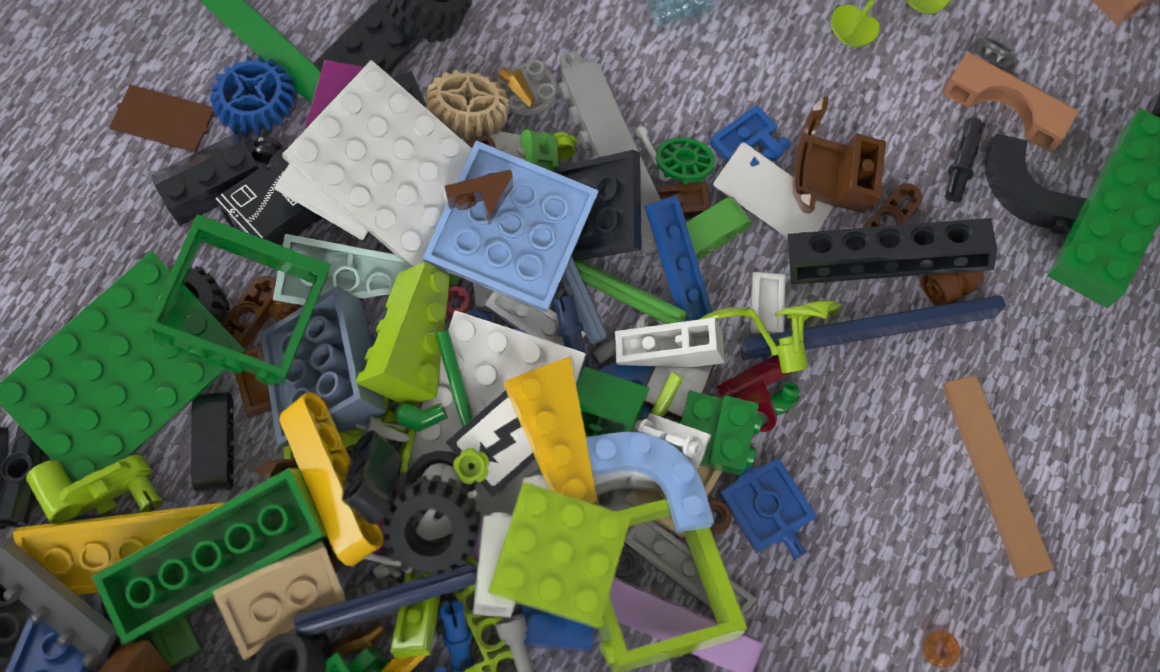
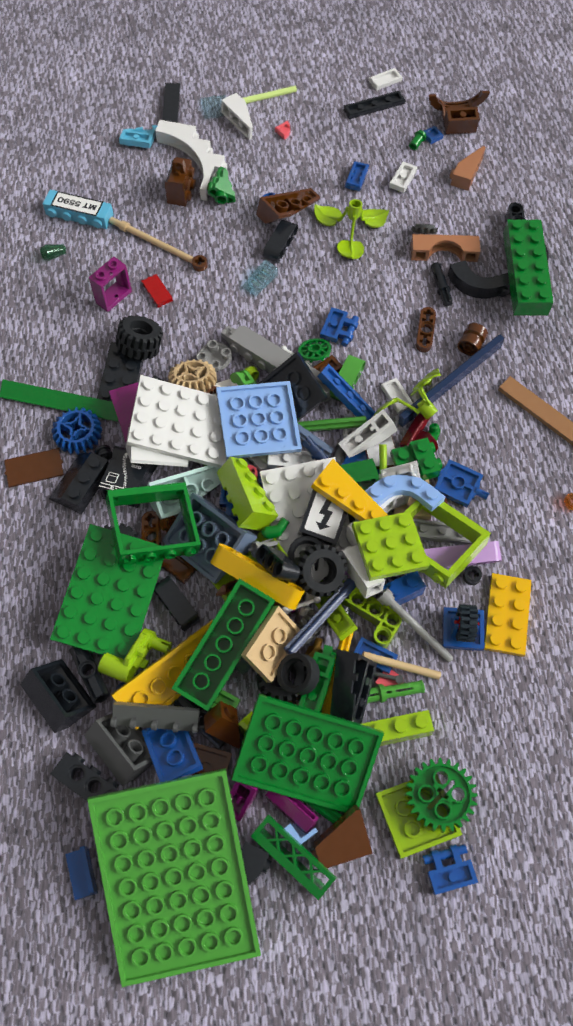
camera: 30 degrees left, 5 degrees down
(454, 377) = (282, 502): green bar -> none
(457, 636) = (360, 618): blue pin -> none
(461, 466) = (324, 531): lime plate -> none
(489, 189) = (239, 407): reddish brown slope -> none
(517, 84) = (211, 356): pearl gold bar -> none
(768, 193) = (366, 345): white sticker -> none
(834, 171) = (389, 319): reddish brown piece -> none
(892, 251) = (439, 340): black brick -> none

